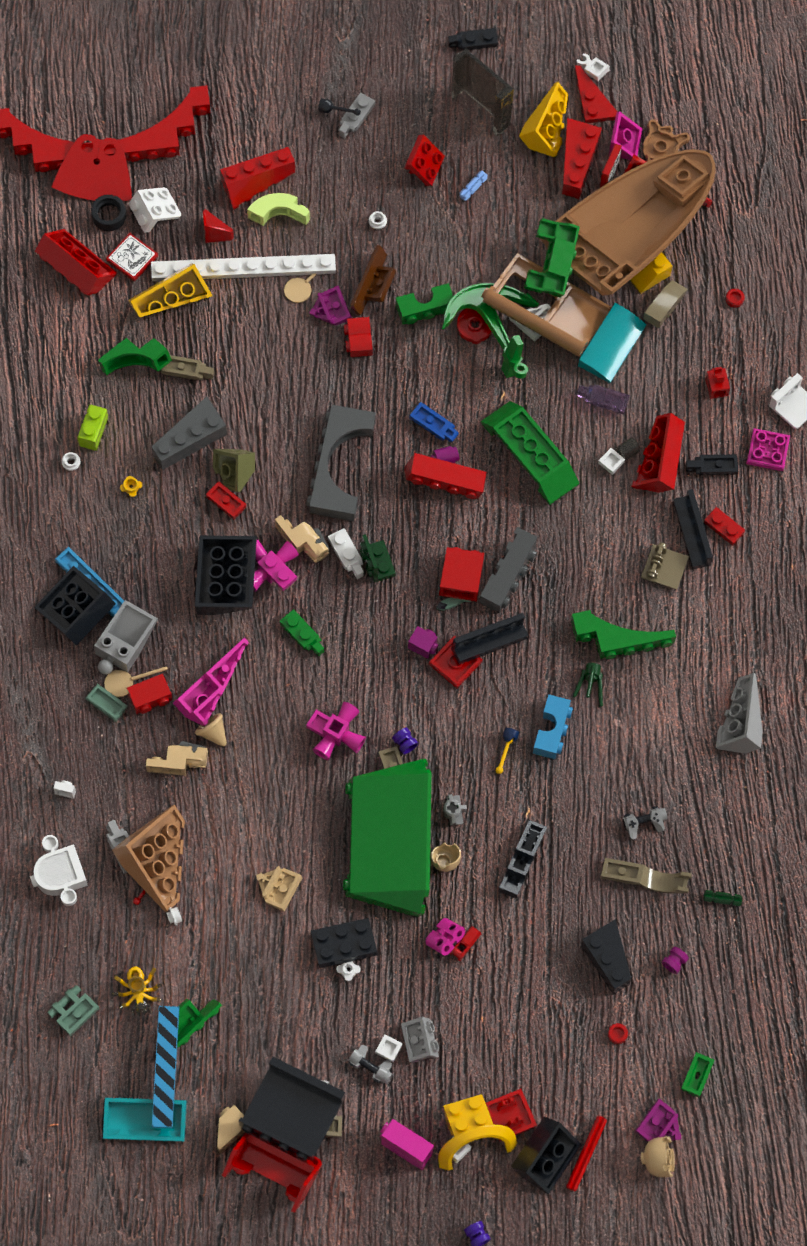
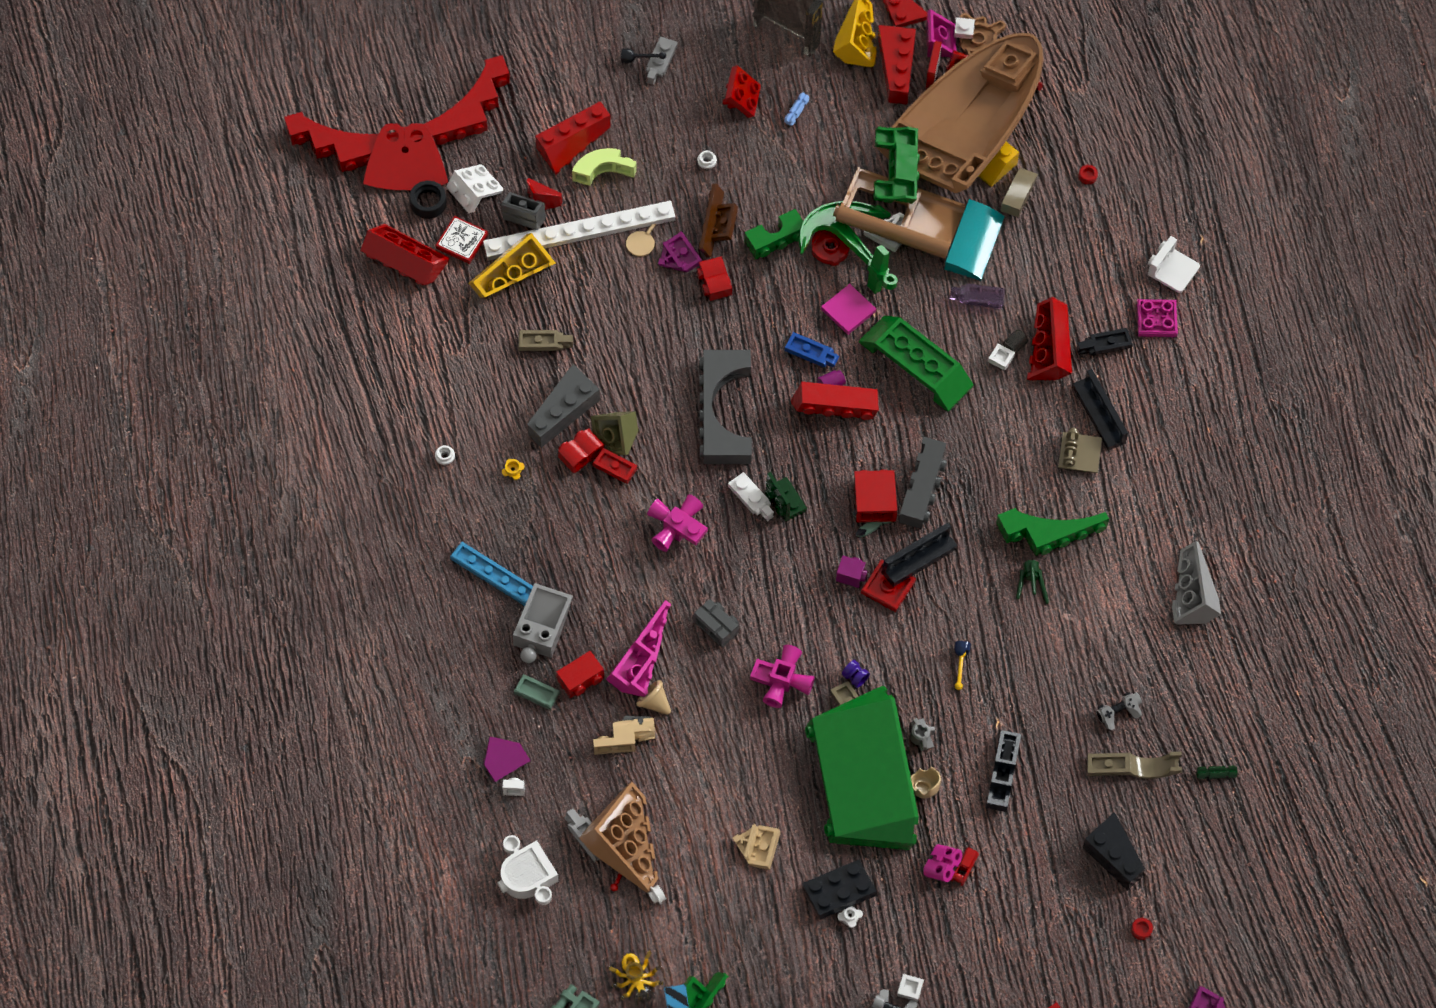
camera: 10 degrees left, 5 degrees down
(62, 759) = (503, 757): none -> magenta slope
(75, 605) = (483, 598): black slope -> none
(93, 427) = (460, 416): lime brick -> none
(119, 680) = (545, 667): tan piece -> none
(126, 354) = (480, 336): green arch -> none
(193, 240) = (523, 211): none -> dark grey brick
(196, 480) = (580, 451): none -> red brick
(225, 574) = (633, 538): black slope -> none
(286, 668) = (716, 622): none -> dark grey brick
(302, 632) = (724, 585): green hinge -> none
(303, 538) = (704, 488): tan plate -> none
(420, 1039) = (940, 972): light grey bracket -> none
(478, 389) = (848, 309): none -> dark pink tile
(548, 742) = (1003, 648): dark azure arch -> none
(649, 134) = (964, 28): none -> white plate
(675, 960) = (1183, 843): magenta wheel -> none
(702, 1065) = (1235, 944): green piece -> none
(717, 383) = (1090, 260): red brick -> none
(724, 526) = (1130, 401): red plate -> none

